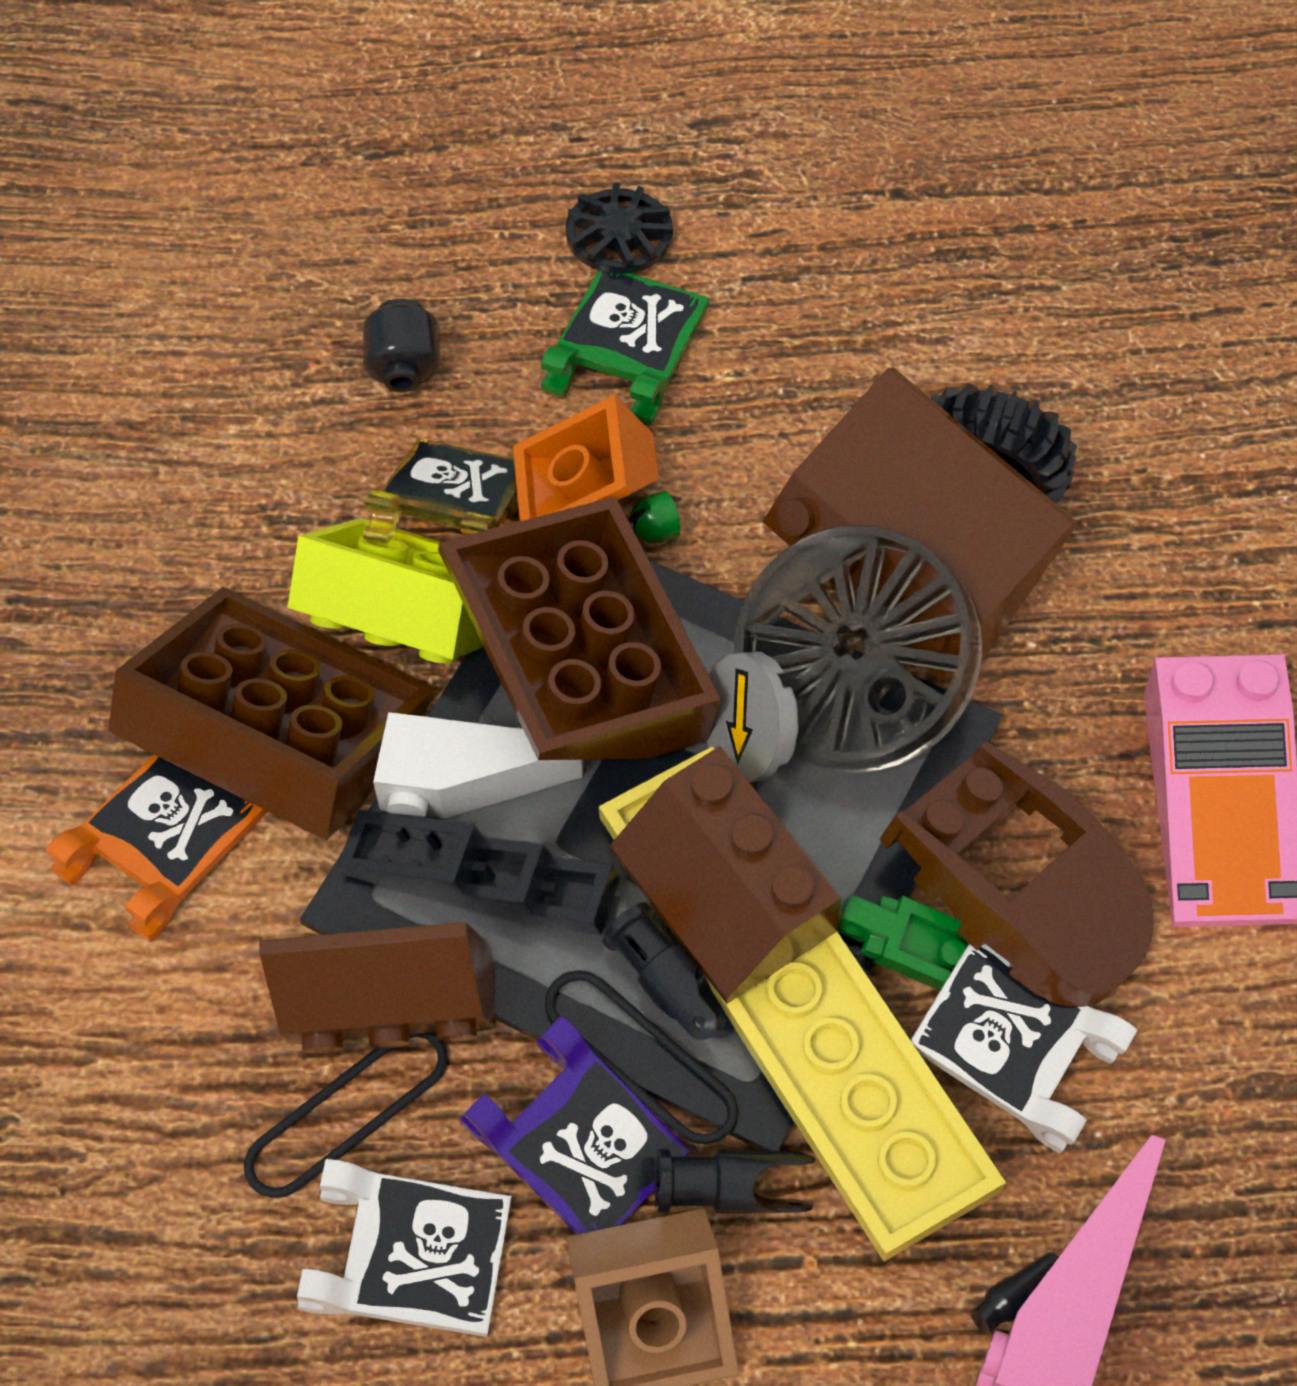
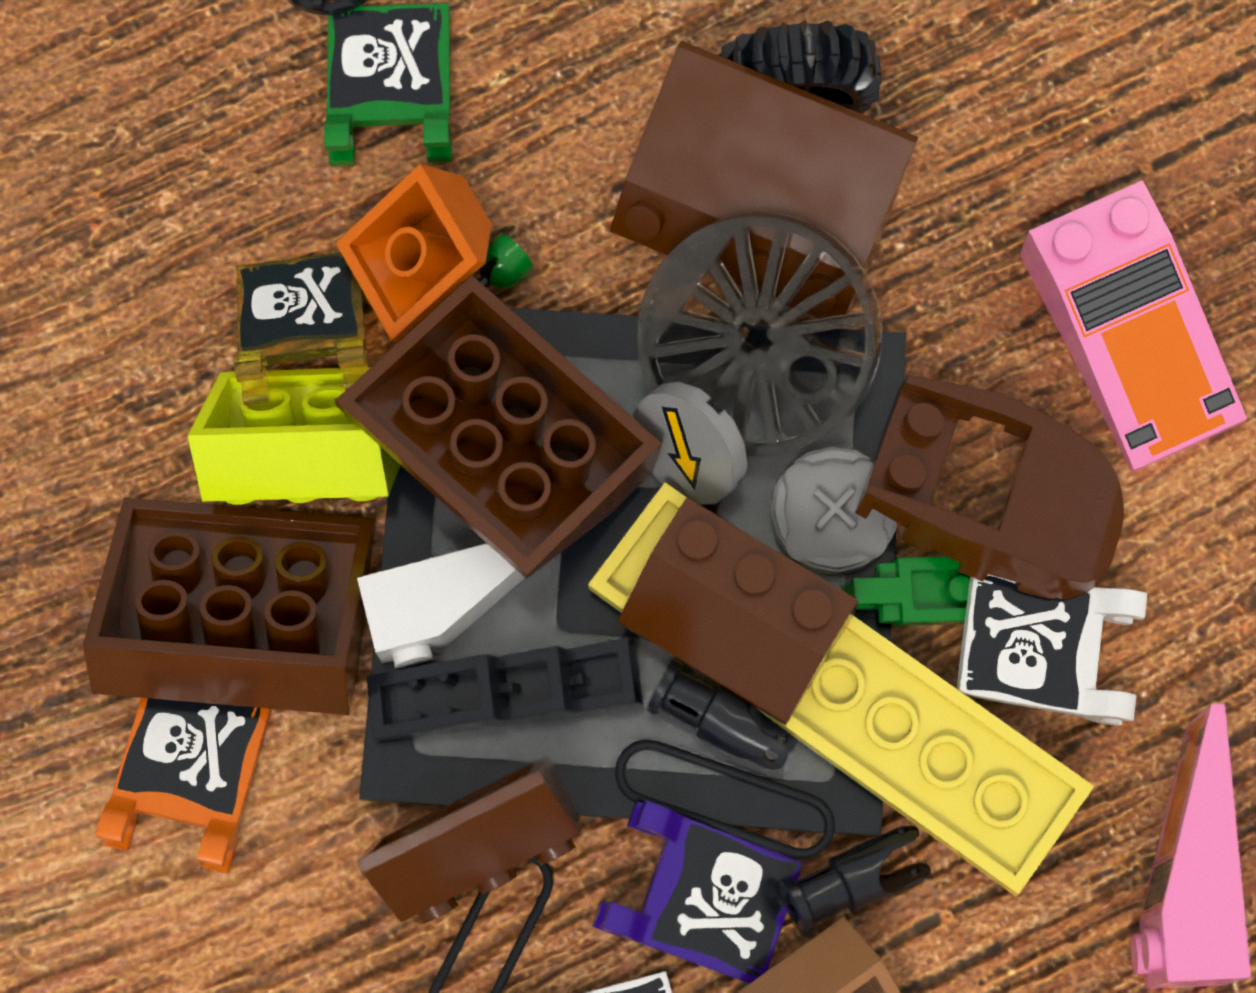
camera: 20 degrees left, 15 degrees up
(400, 344) = (178, 179): black head -> none
(843, 834) = (817, 514): none -> light grey tile
(1008, 1295) = (1131, 872): black piece -> none

